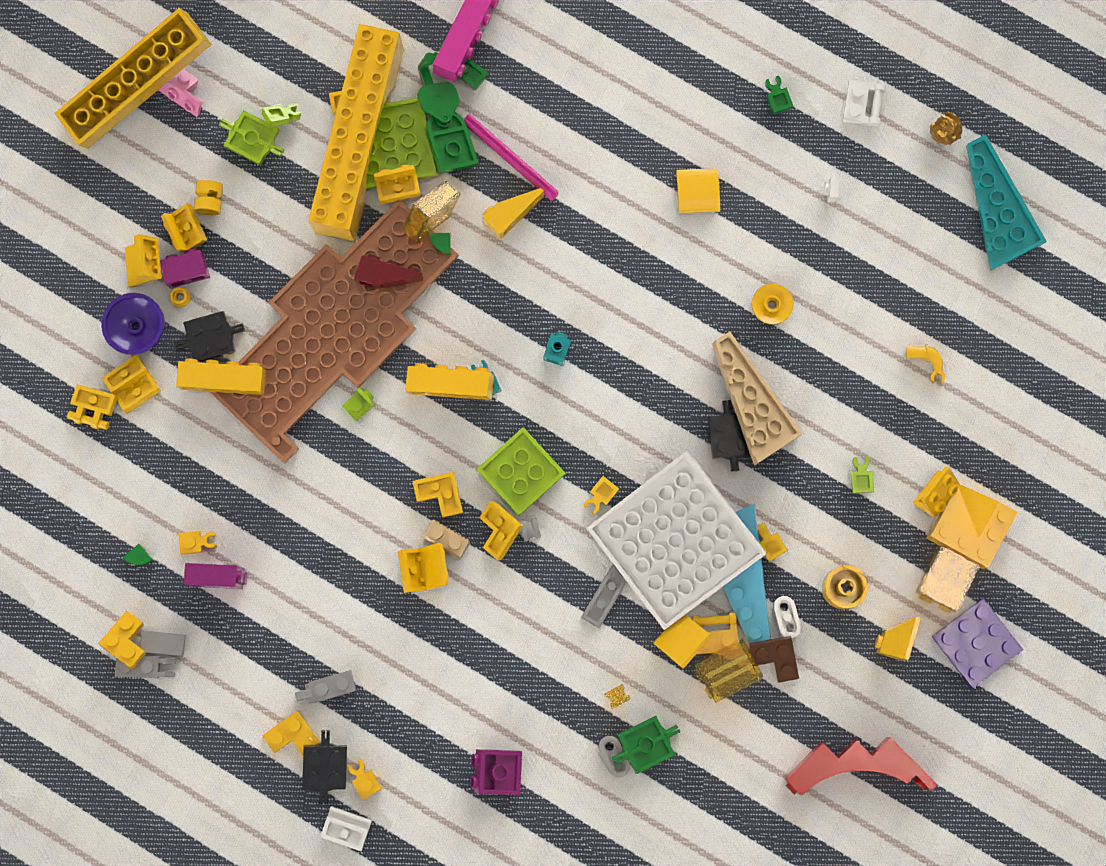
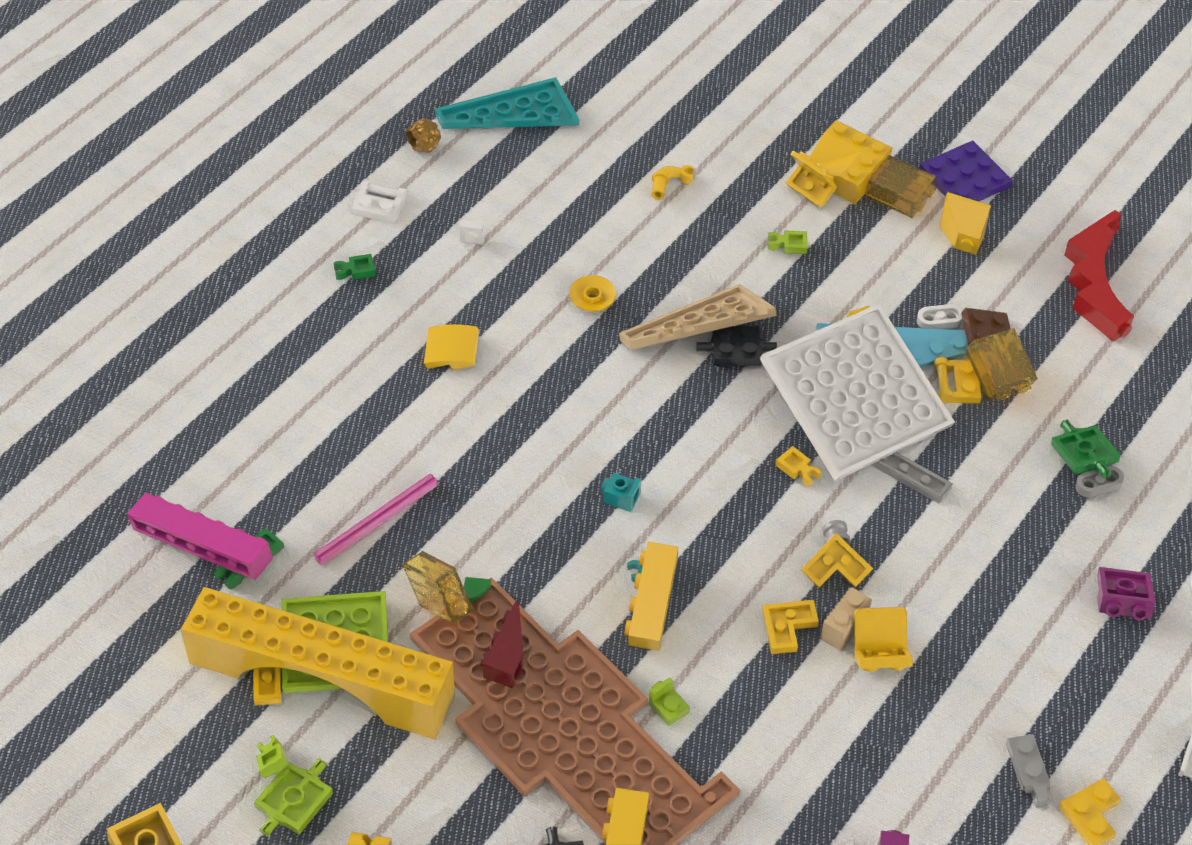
camera: 90 degrees left, 30 degrees down
(324, 767) = (1130, 774): black plate -> none
(366, 781) = (1145, 735): yellow plate -> none
(397, 184) = (393, 623): yellow bracket -> none
(450, 142) = (326, 575): green plate -> none
(508, 213) = (451, 526): yellow slope -> none
(521, 471) = (765, 540): lime plate -> none
(617, 696) = (1031, 471): clear yellow wheel -> none
(682, 640) = (969, 401): yellow slope -> none
(834, 593) = (909, 262): yellow brick -> none

